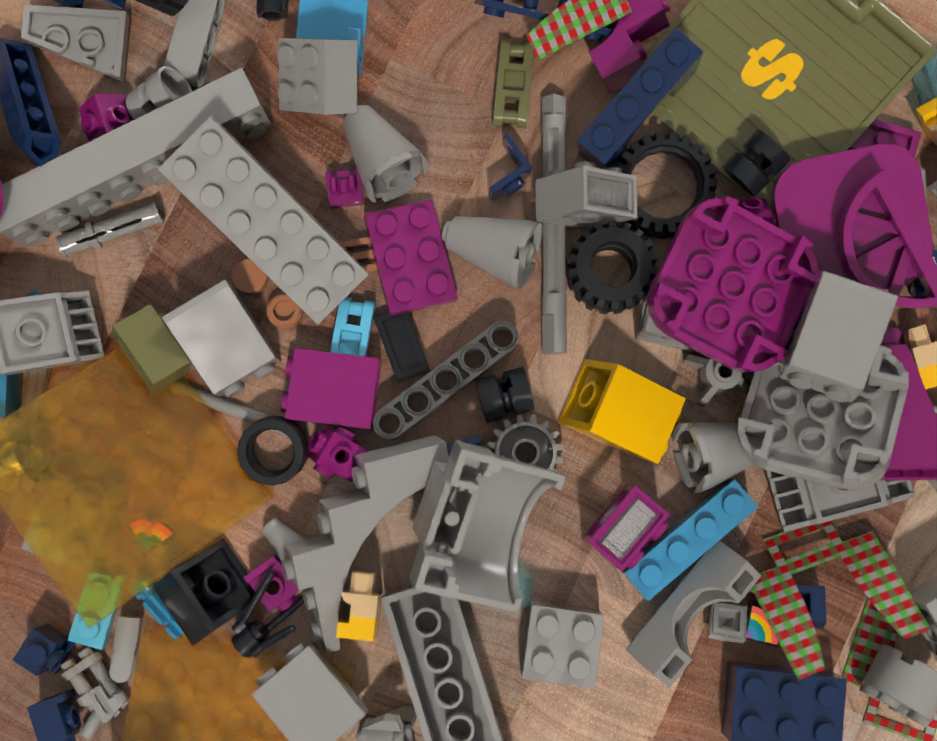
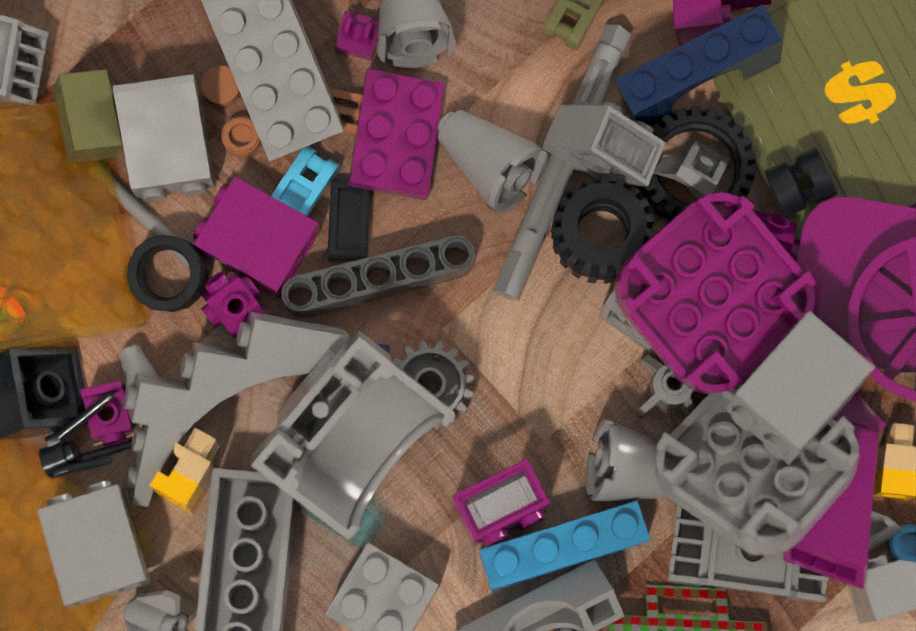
camera: 20 degrees right, 5 degrees down
(504, 394) = (433, 315): black wheel -> none
(514, 180) = (539, 98): dark blue bracket -> none
(622, 409) = (552, 383): yellow slope -> none
(667, 185) = (697, 168): none -> light grey slope

